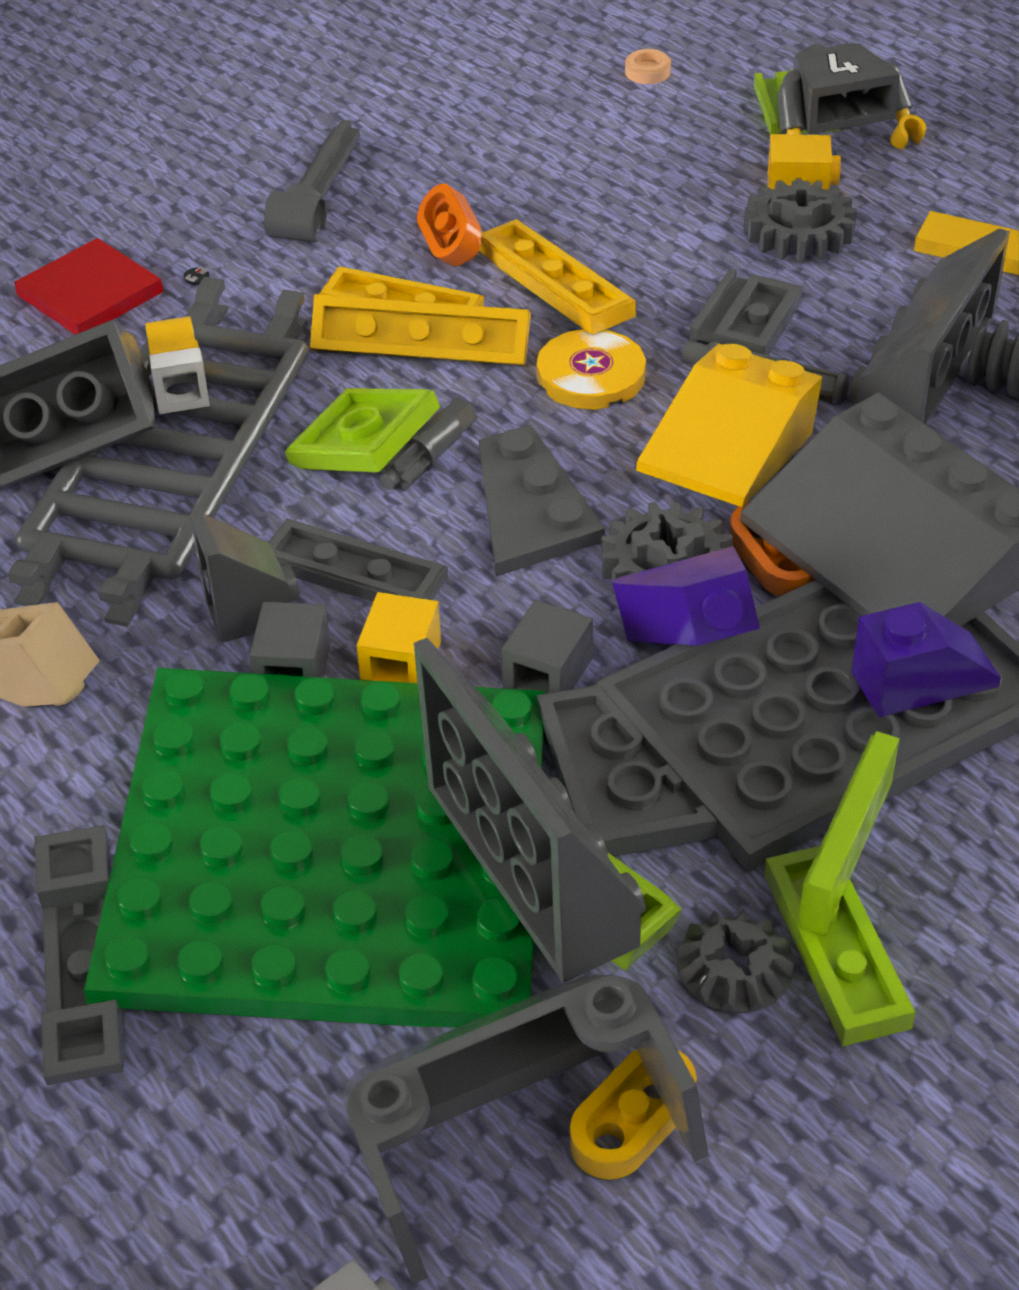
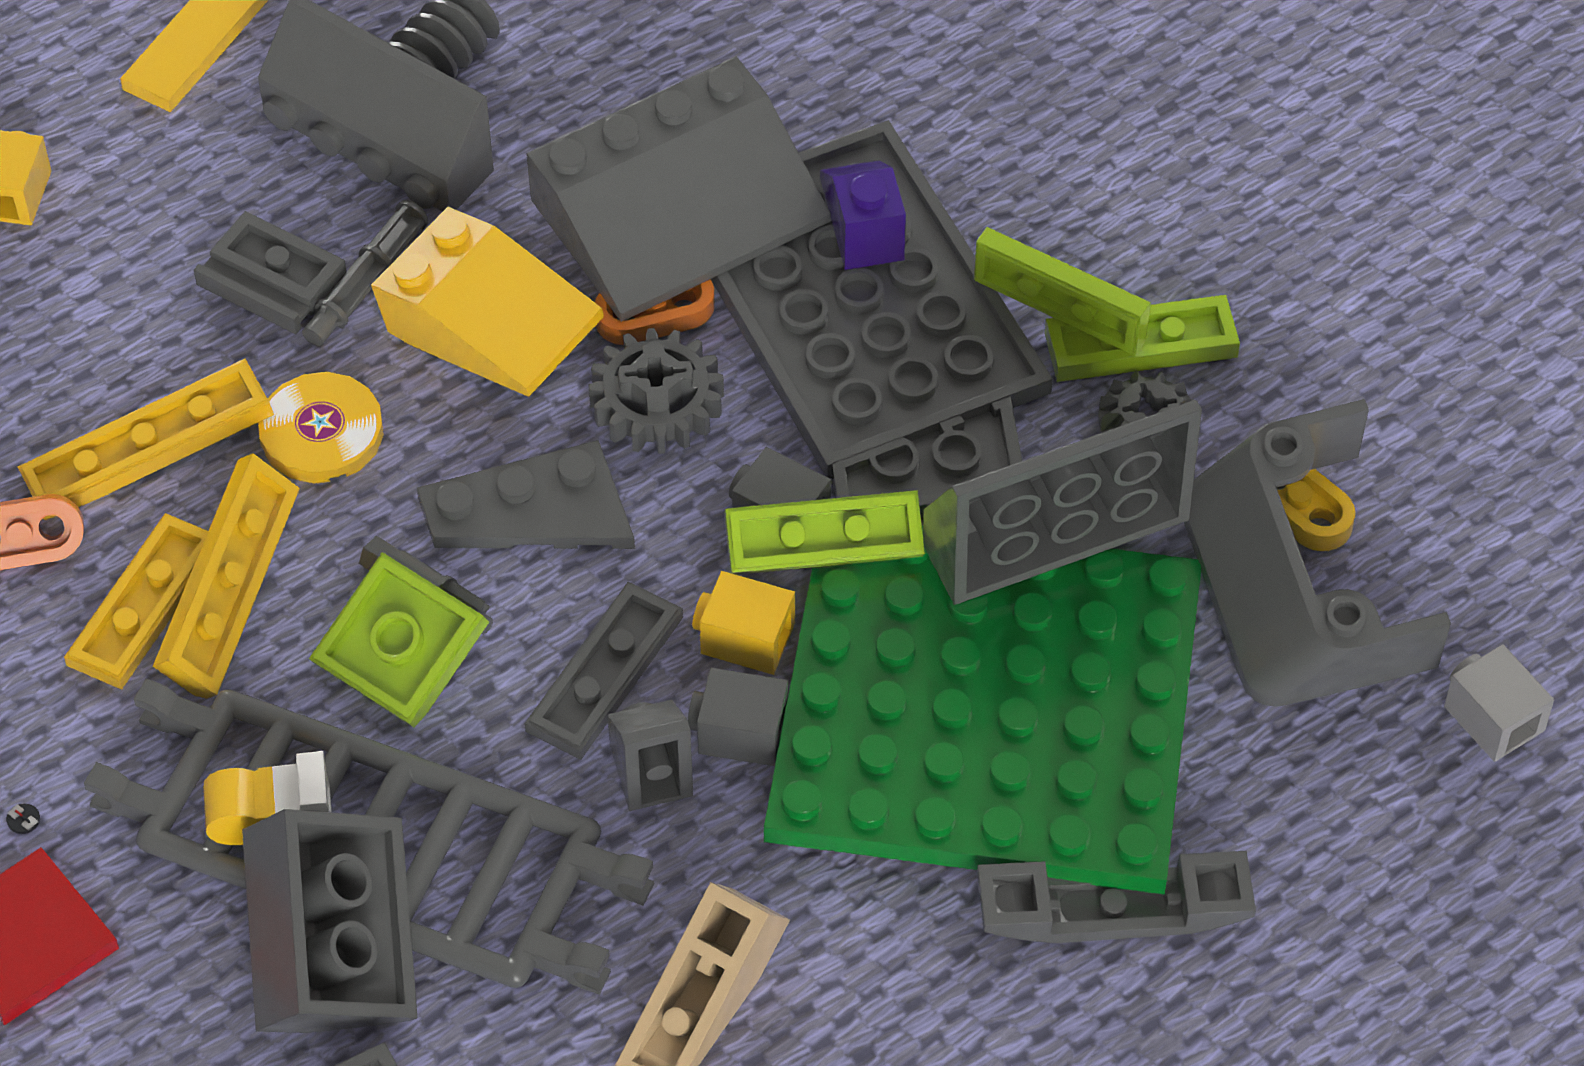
camera: 85 degrees left, 10 degrees up
(490, 656) = (824, 532): none -> lime tile
(688, 600) = (753, 365): dark purple slope -> none
(800, 219) = (115, 194): dark grey gear -> none

